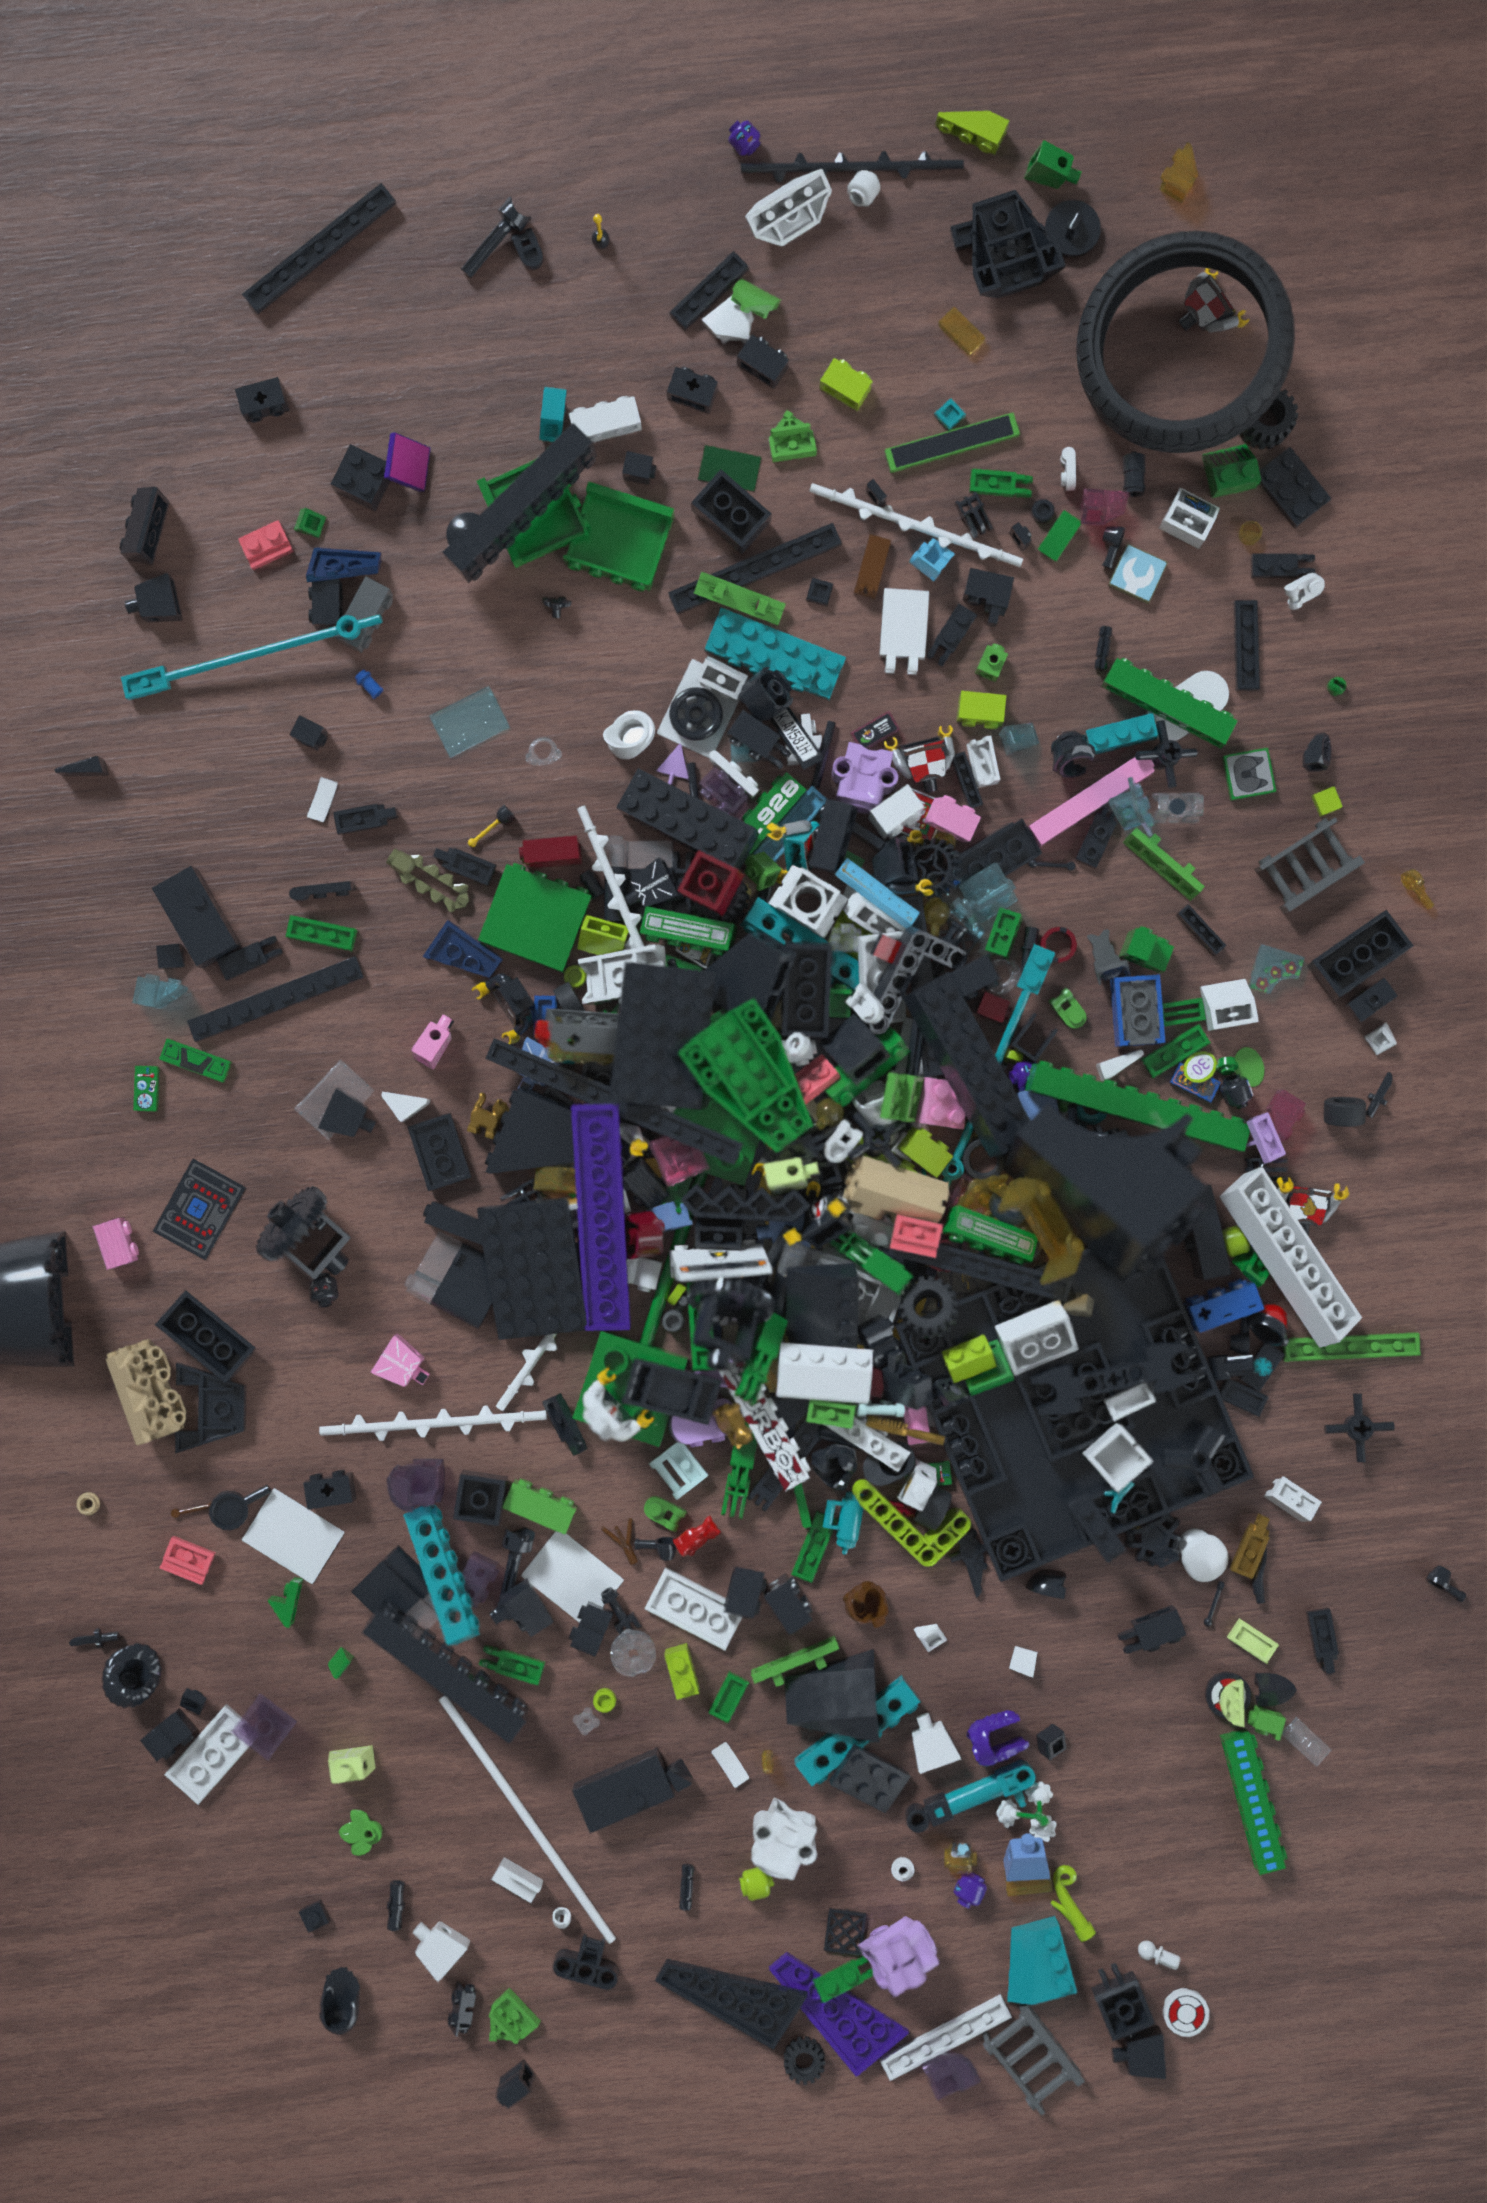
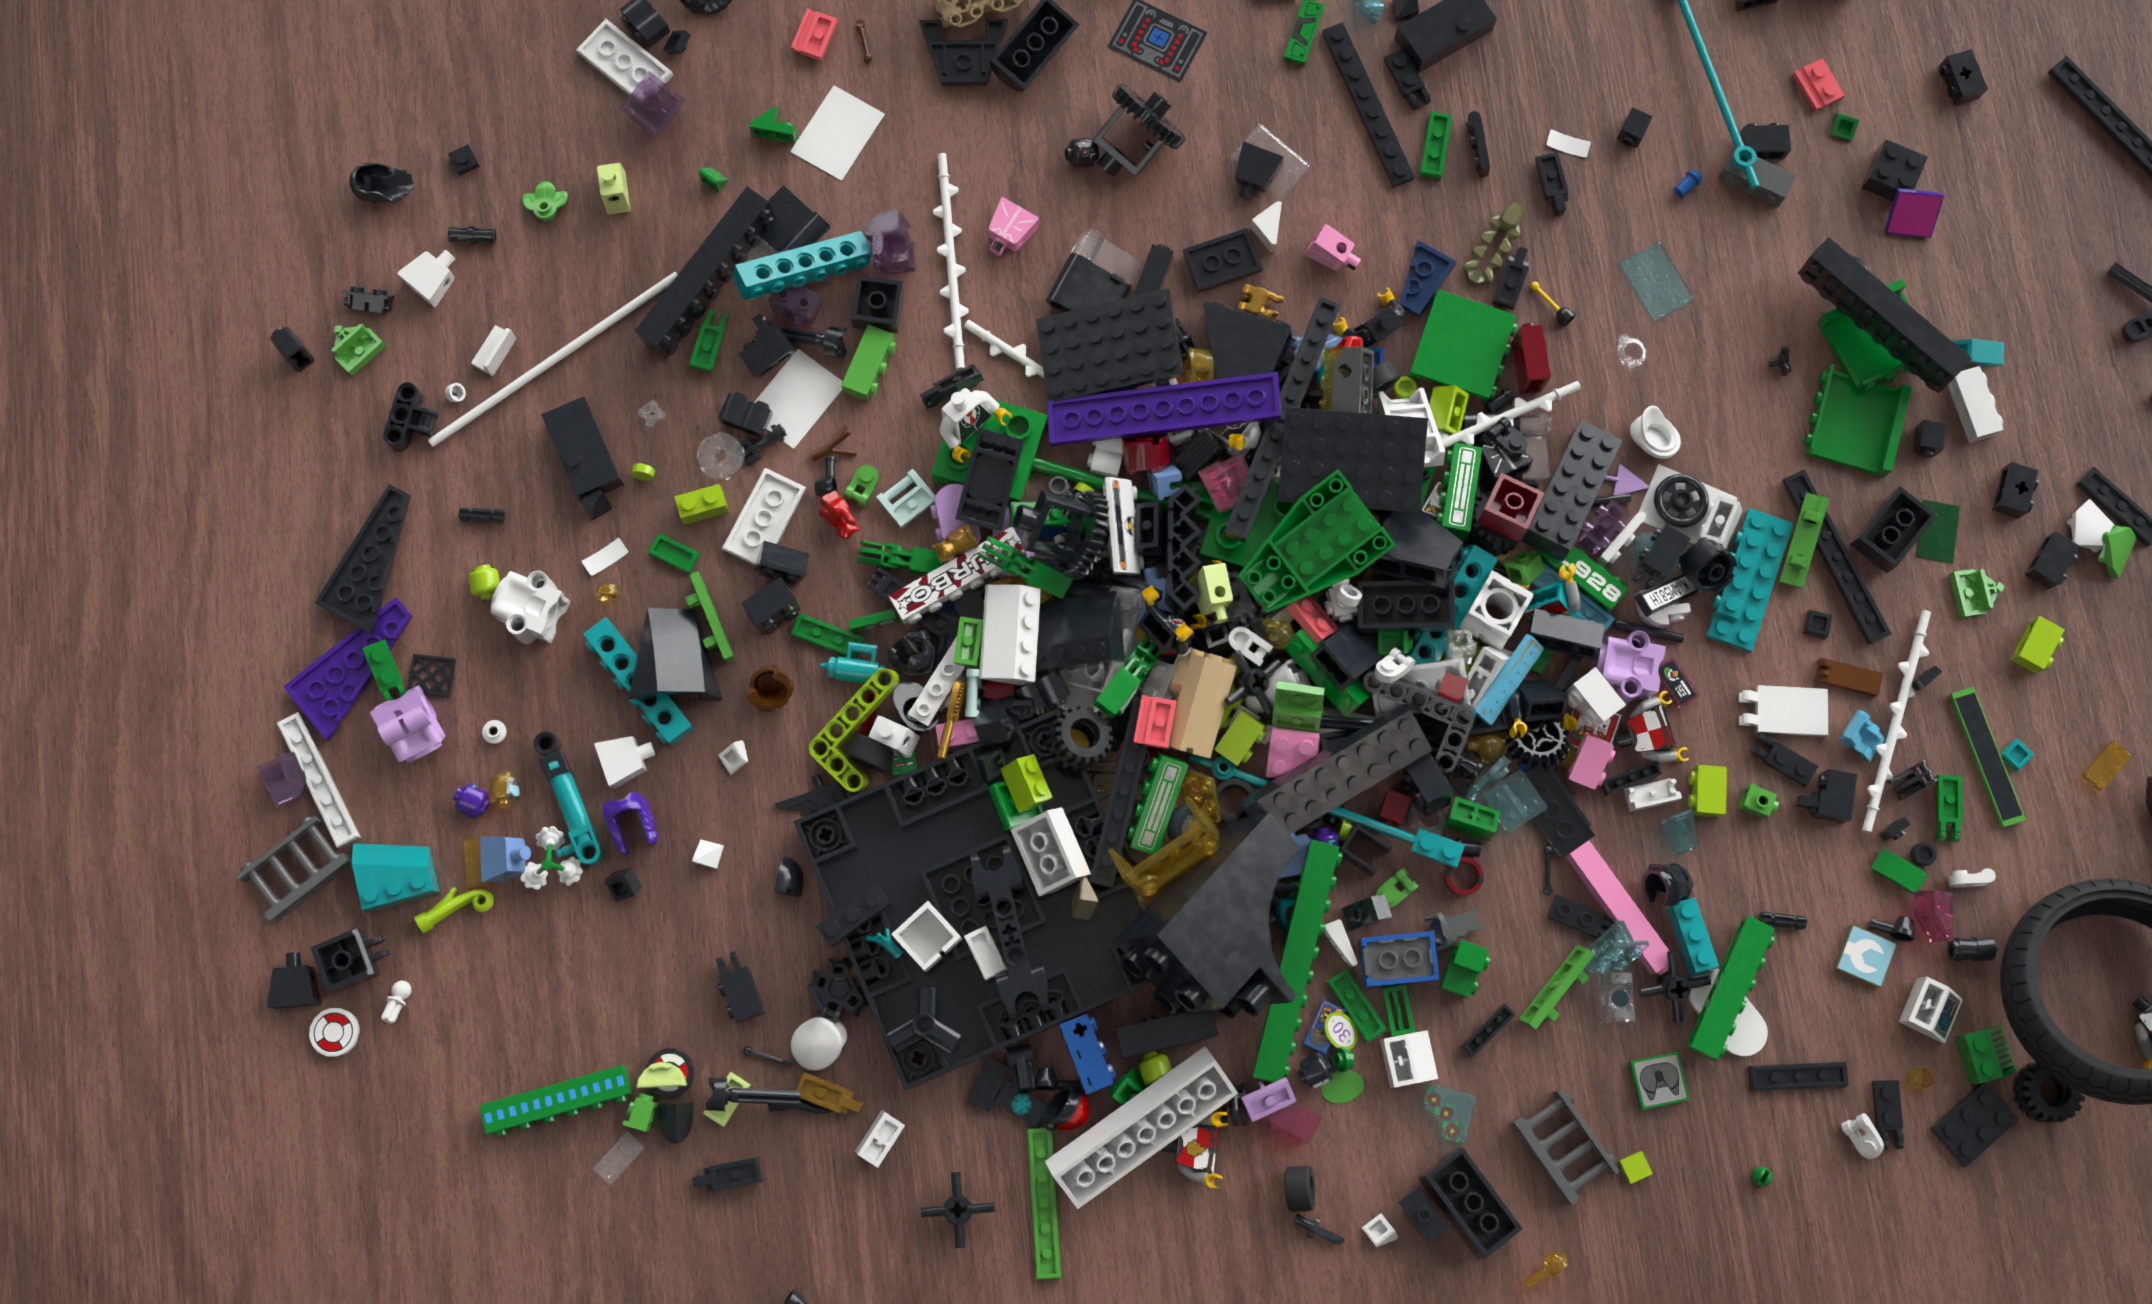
camera: 90 degrees right, 10 degrees down
(230, 1508) = (864, 73): black piece -> none
(319, 1497) = (881, 151): black brick -> none
(340, 563) = (1806, 154): dark blue wing -> none
(604, 1700) = (672, 431): lime tile -> none
(643, 874) = (1513, 444): none -> black plate
(646, 1729) = (642, 472): none -> lime tile
(809, 2073) = (290, 627): black tyre -> none
(869, 1778) = (589, 693): black plate -> none
(1091, 1037) = (1367, 912): none -> black brick
(1253, 1646) = (723, 1094): none -> black piece
(1318, 753) = (1687, 1154): black rock -> none

